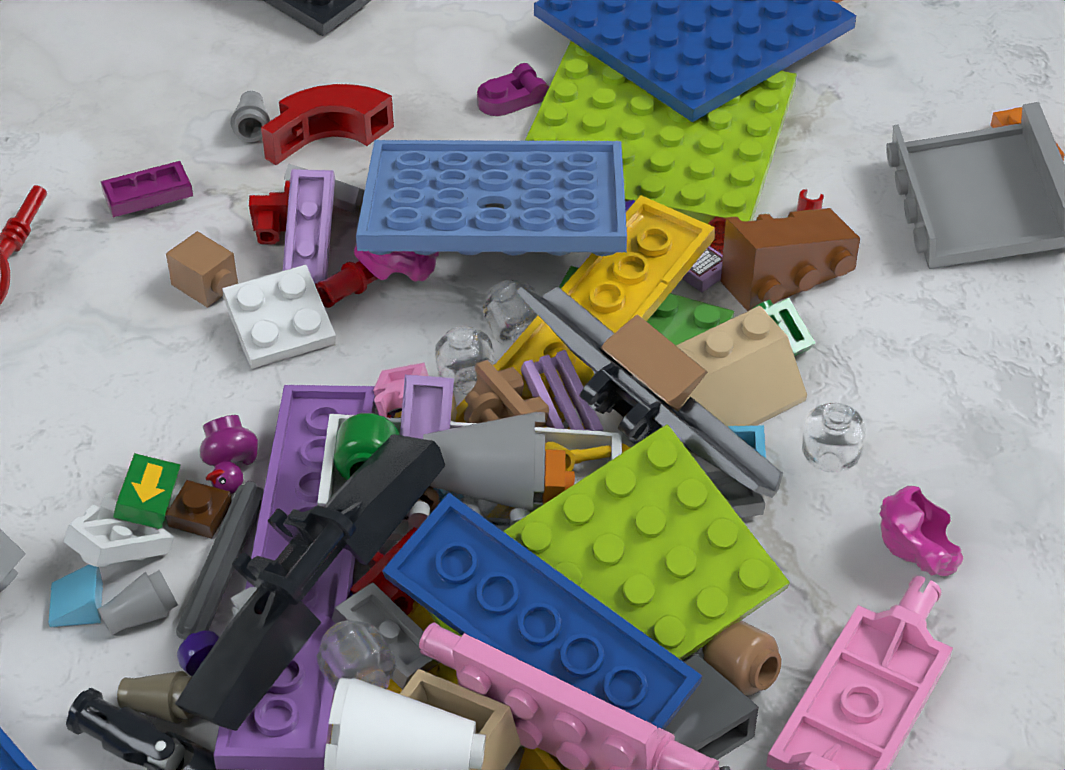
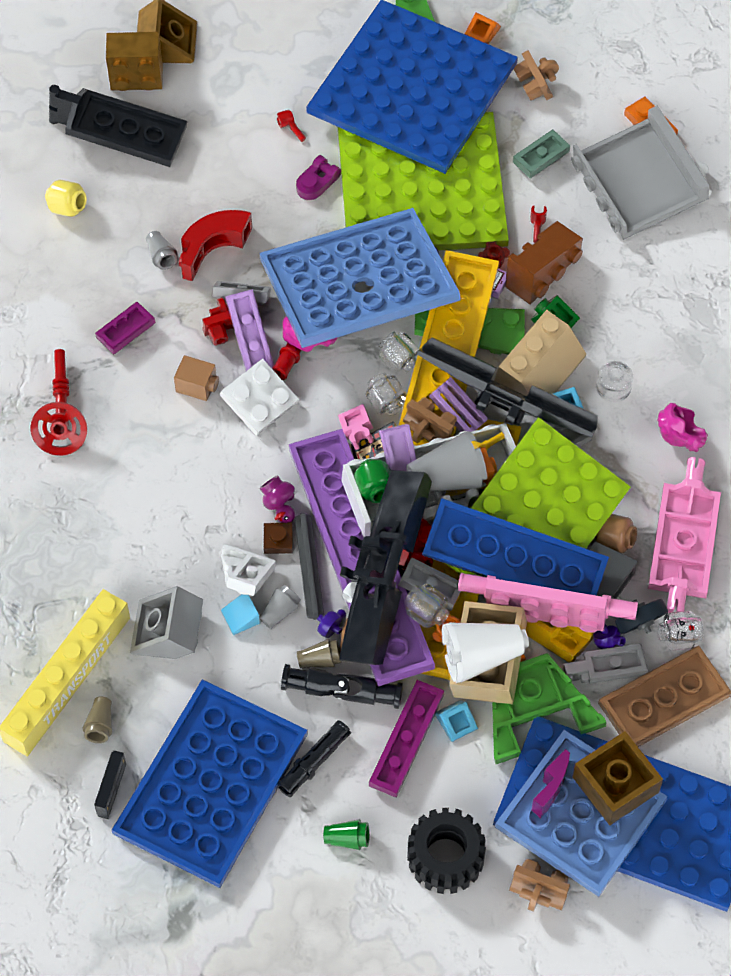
camera: 20 degrees left, 15 degrees up
(147, 491) = (248, 538): green tile -> none
(162, 31) = (65, 198): none -> light yellow head
(505, 20) = (285, 119): none -> red hand
(655, 361) = (506, 371): medium nougat slope -> none
(845, 135) = (541, 153): none -> sand green plate
(872, 49) = (538, 86): none -> medium nougat hips

